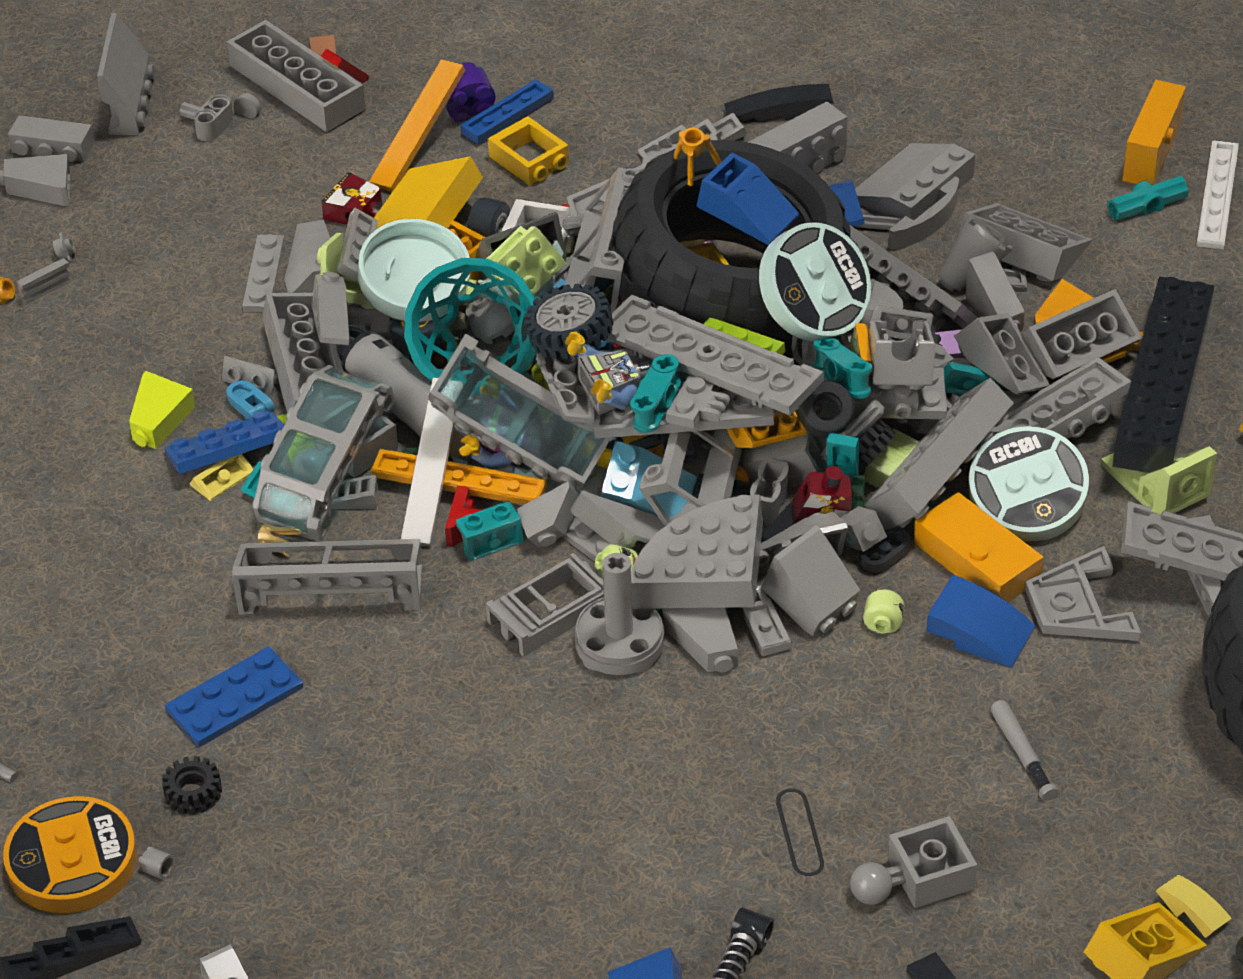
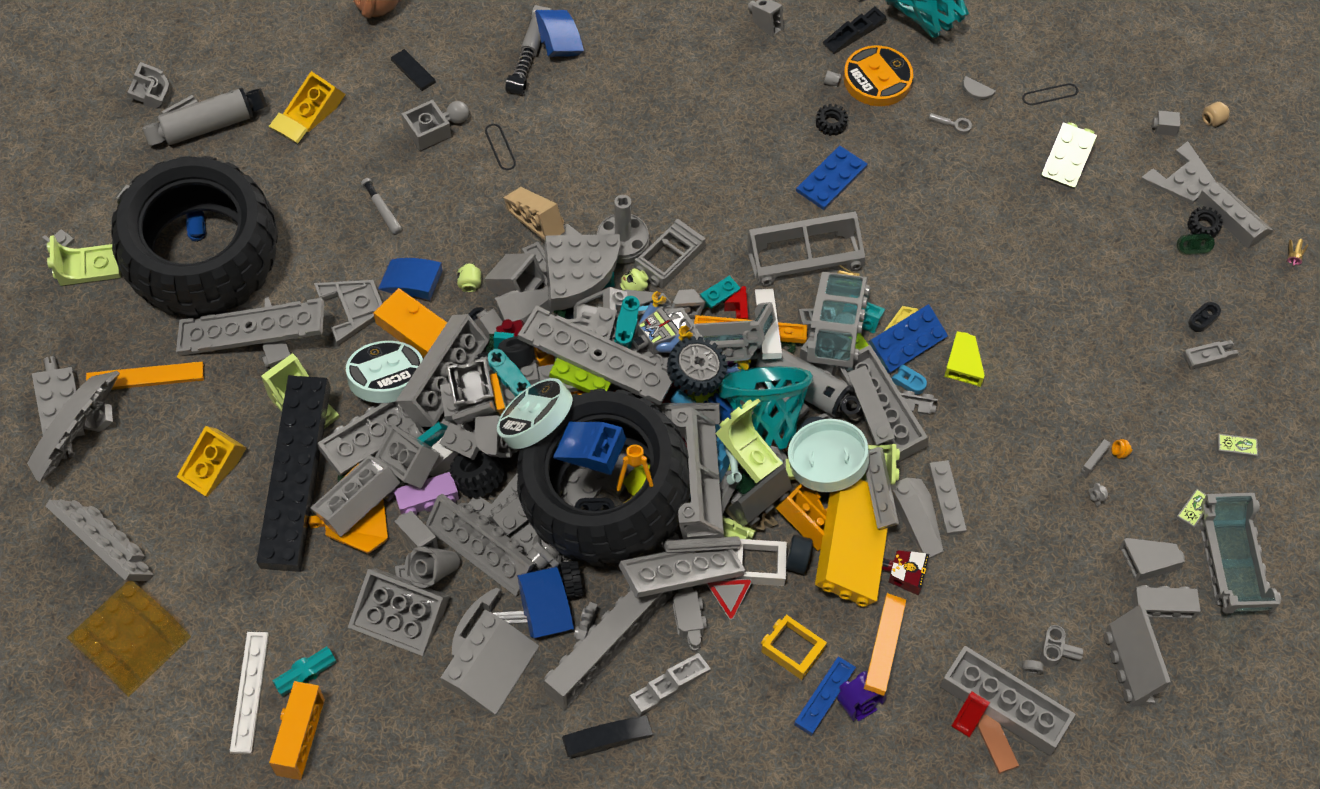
camera: 165 degrees right, 15 degrees up
(760, 665) = (535, 212): none -> tan wedge

